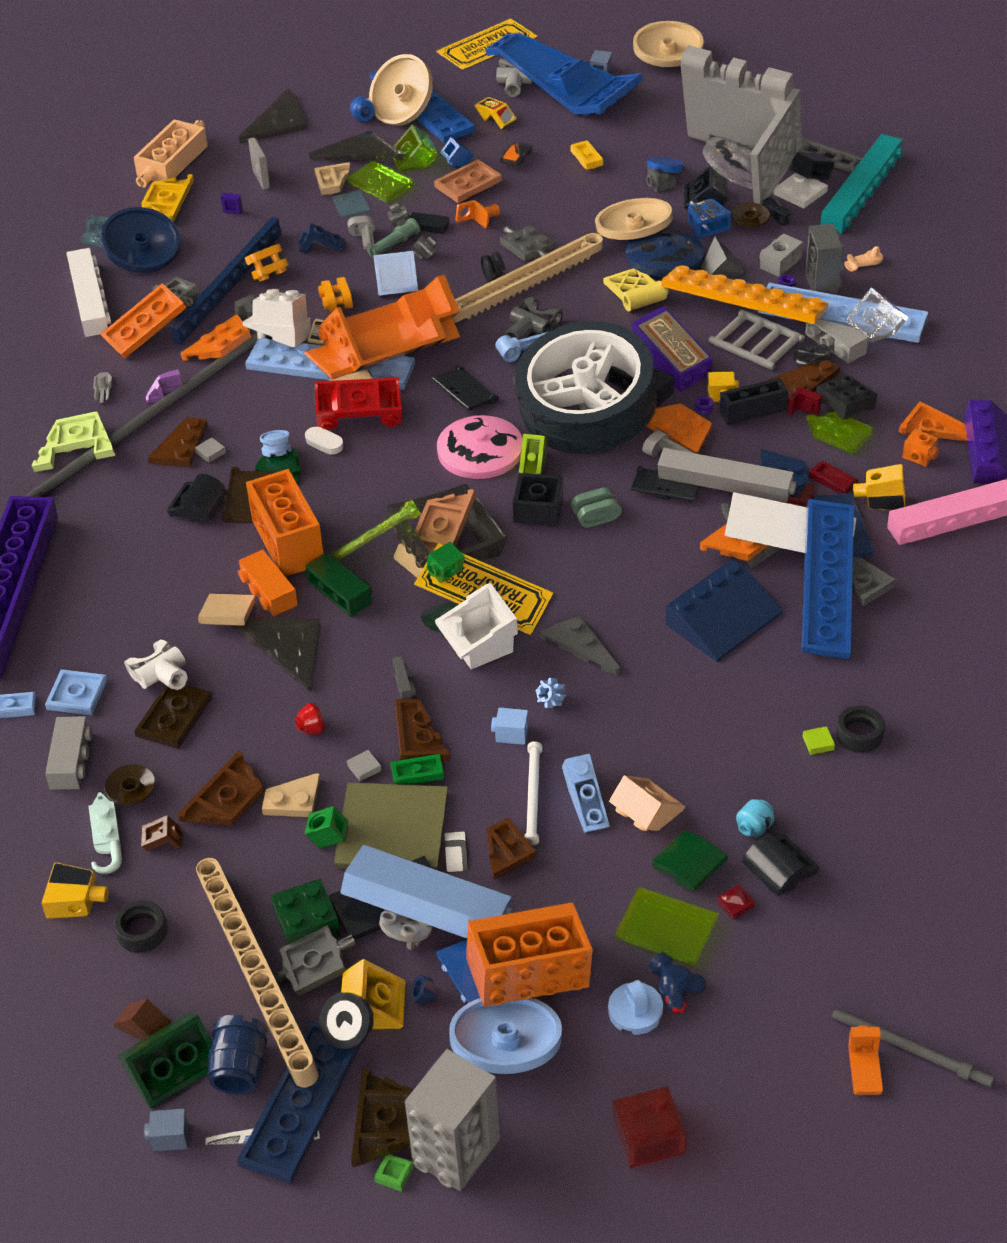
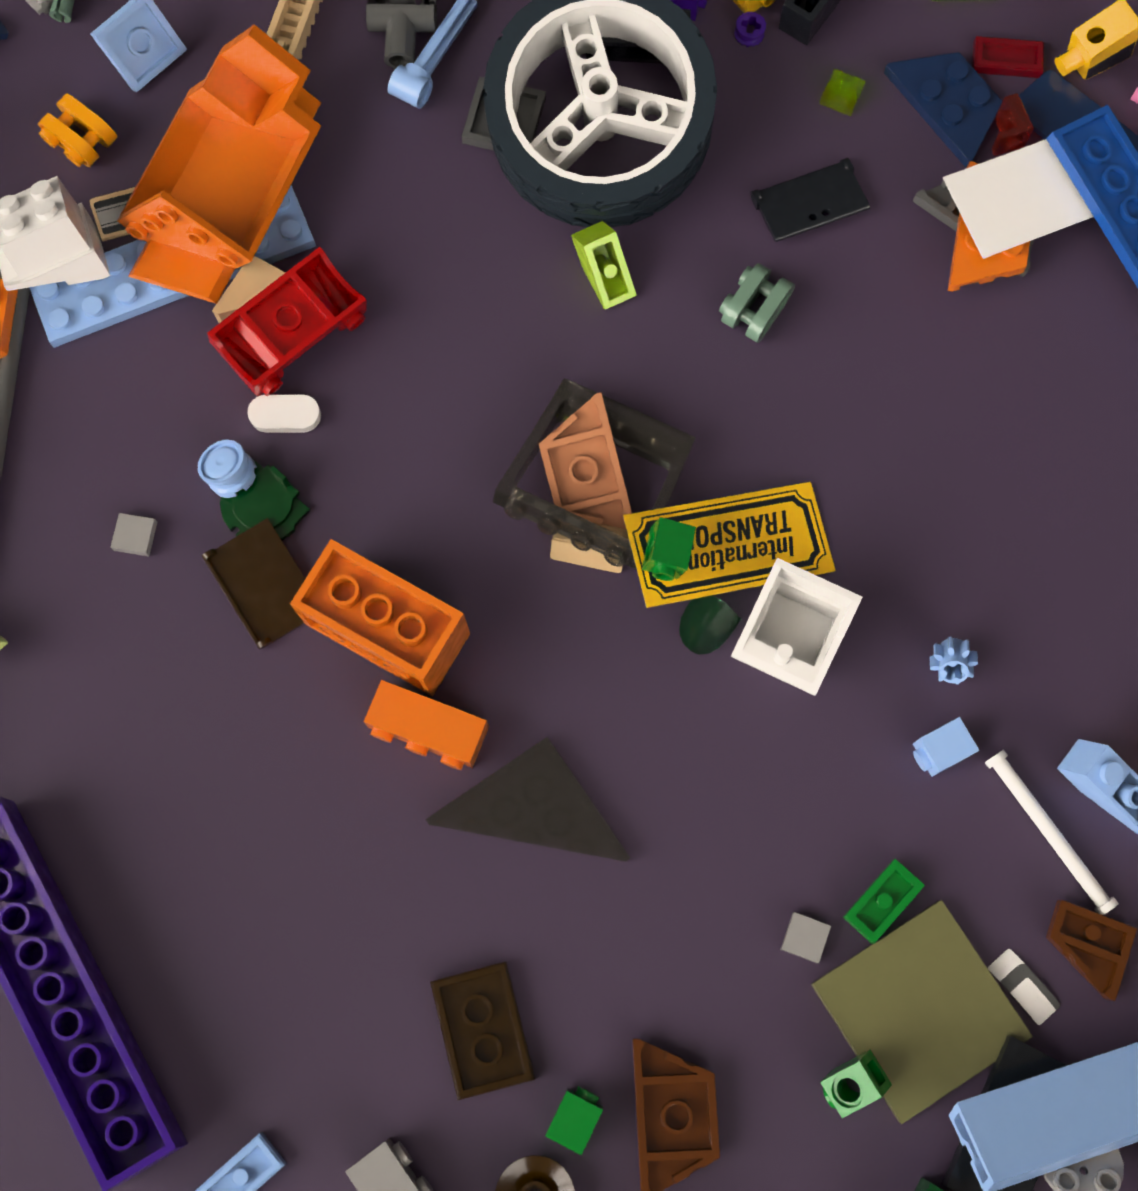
camera: 35 degrees left, 30 degrees up
(76, 692) = (315, 1088): light blue tile -> none
(160, 666) = (409, 978): white connector -> none
(179, 767) = (575, 1119): none -> green brick
(180, 445) = (80, 550): reddish brown wing -> none
(198, 498) = (200, 642): black brick -> none
(226, 609) = (409, 809): tan tile -> none
(292, 798) = (758, 1055): tan wing -> none
(310, 720) = (683, 920): red cone -> none
(339, 584) = (526, 660): dark green brick -> none
(402, 674) = (762, 779): dark grey plate -> none
(409, 511) = (546, 492): clear neon green piece -> none
(415, 731) = (838, 846): reddish brown wing -> none
(465, 388) = (424, 196): black door -> none
(479, 447) = (511, 288): bright pink dish -> none
(538, 499) = (679, 341): black brick -> none
(581, 642) = (902, 540): dark grey wing -> none
(658, 441) = (750, 131): light grey piece -> none
(682, 426) = (758, 87): orange wing -> none
(722, 610) = (1052, 377): dark blue slope -> none
(726, 475) = (894, 145): light grey brick -> none
(727, 449) = (842, 92): none -> clear neon green tile

